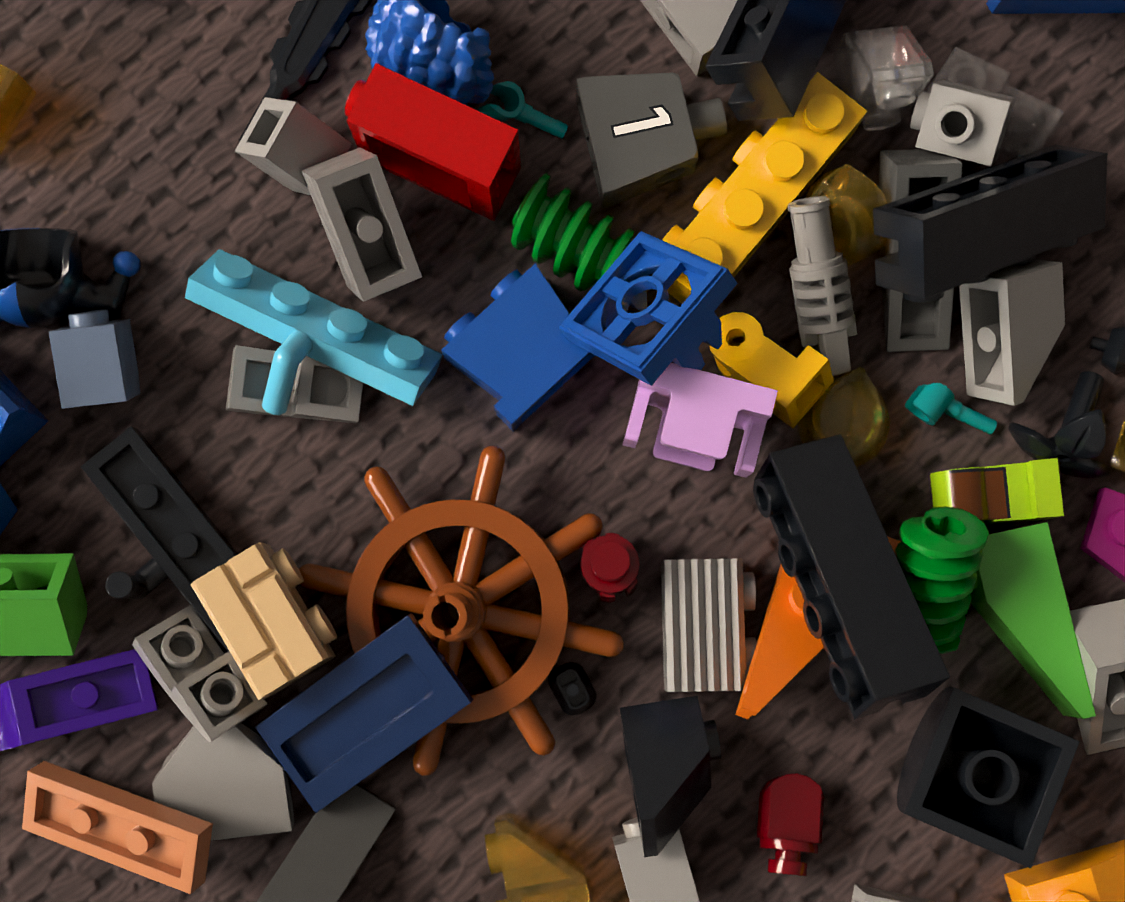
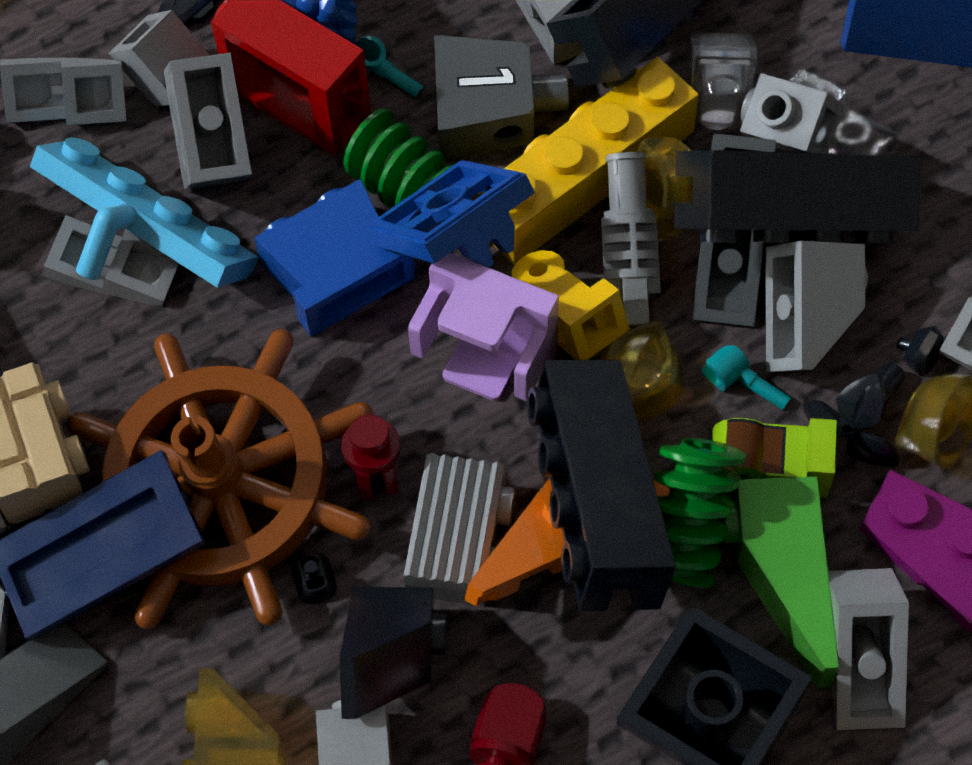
camera: 15 degrees right, 20 degrees down
(193, 193) = (63, 89): none -> light grey slope

